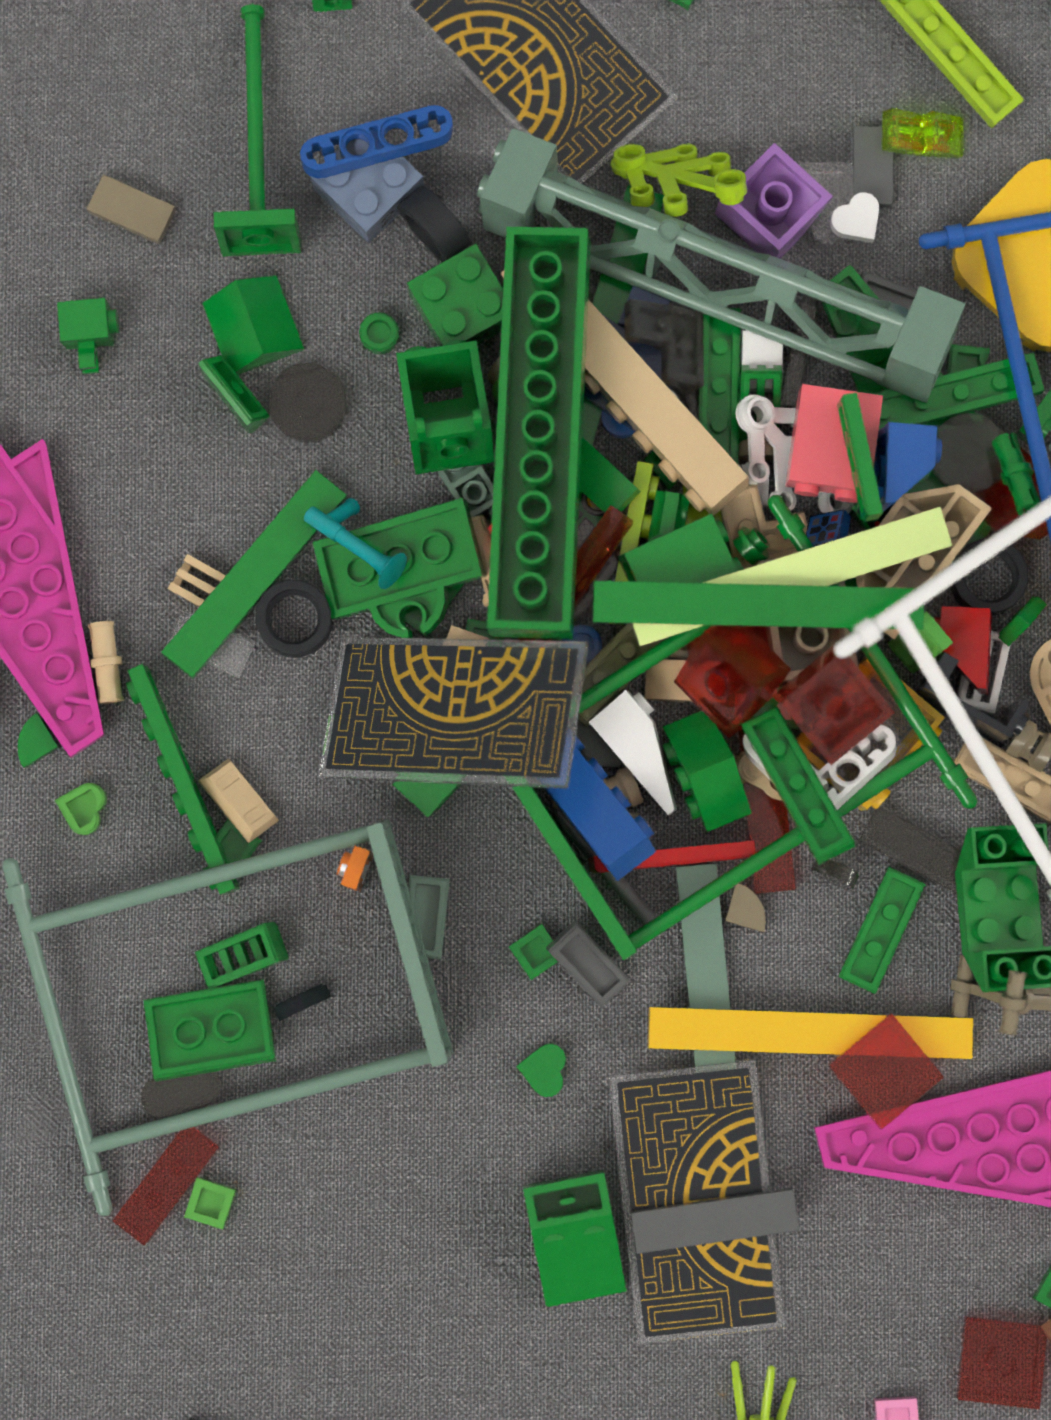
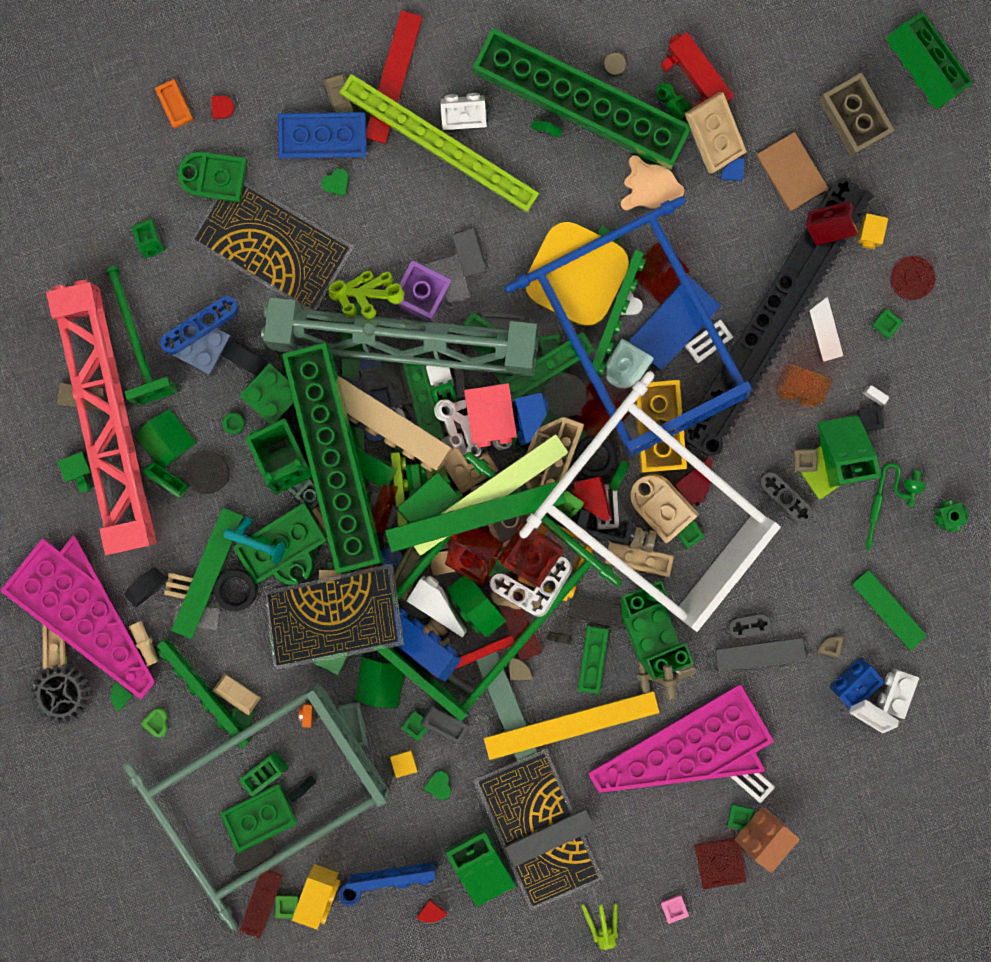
camera: 15 degrees left, 5 degrees up
(140, 562) = (145, 587): none -> black tyre
(162, 46) = (74, 303): none -> coral piece
(269, 1194) = (316, 897): none -> yellow brick
(432, 1210) = (399, 877): none -> blue hinge
(462, 1293) = (431, 913): none -> red tile
(493, 1012) = (403, 763): none -> yellow tile
(495, 856) = (379, 683): none -> green slope
(751, 545) = (464, 479): green plate -> none
(798, 785) = (524, 603): green tile -> none
(828, 527) = (501, 459): tile -> none
(857, 219) = (468, 286): white tile -> none
(859, 457) = (505, 422): green tile -> none
(885, 1071) = (615, 734): clear red tile -> none
(922, 134) = (490, 227): clear neon green slope -> none
(1016, 472) = (592, 401): green pin -> none

